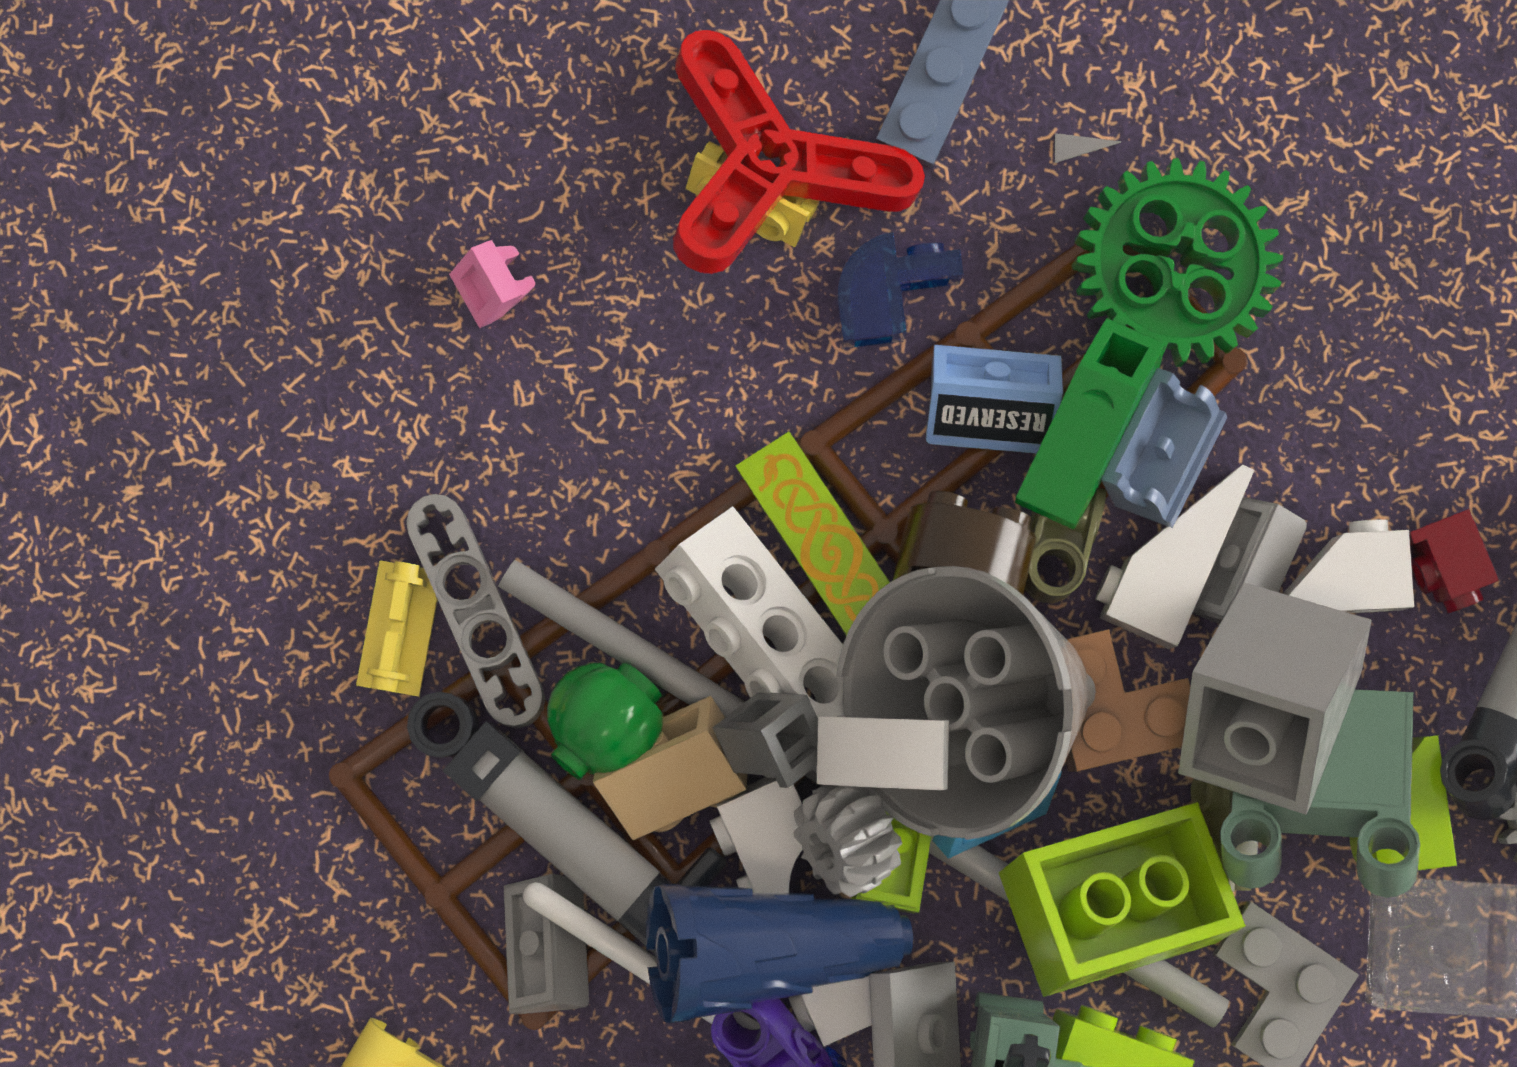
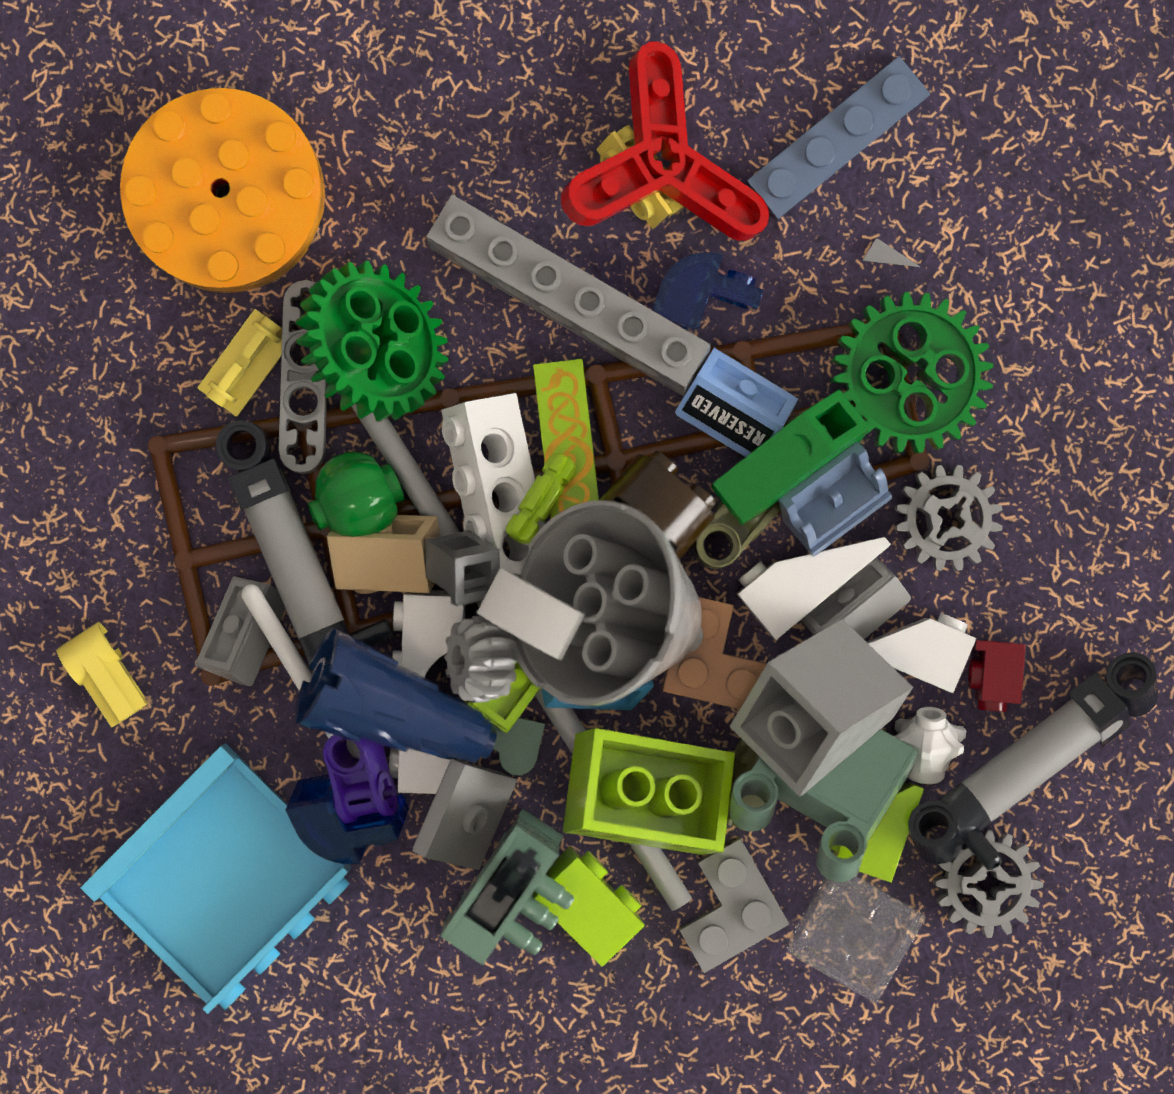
camera: 20 degrees right, 5 degrees up
(216, 427) = (191, 153): none -> light orange piece
(487, 282) = (423, 150): bright pink tile -> none
(535, 529) = (372, 341): none -> green gear
(737, 366) = (568, 295): none -> light grey brick
(823, 614) = (541, 498): none -> lime axle
(940, 920) = (520, 746): none -> sand green tile
(1274, 405) = (967, 530): none -> light grey gear
(1419, 669) = (935, 741): none -> white rock

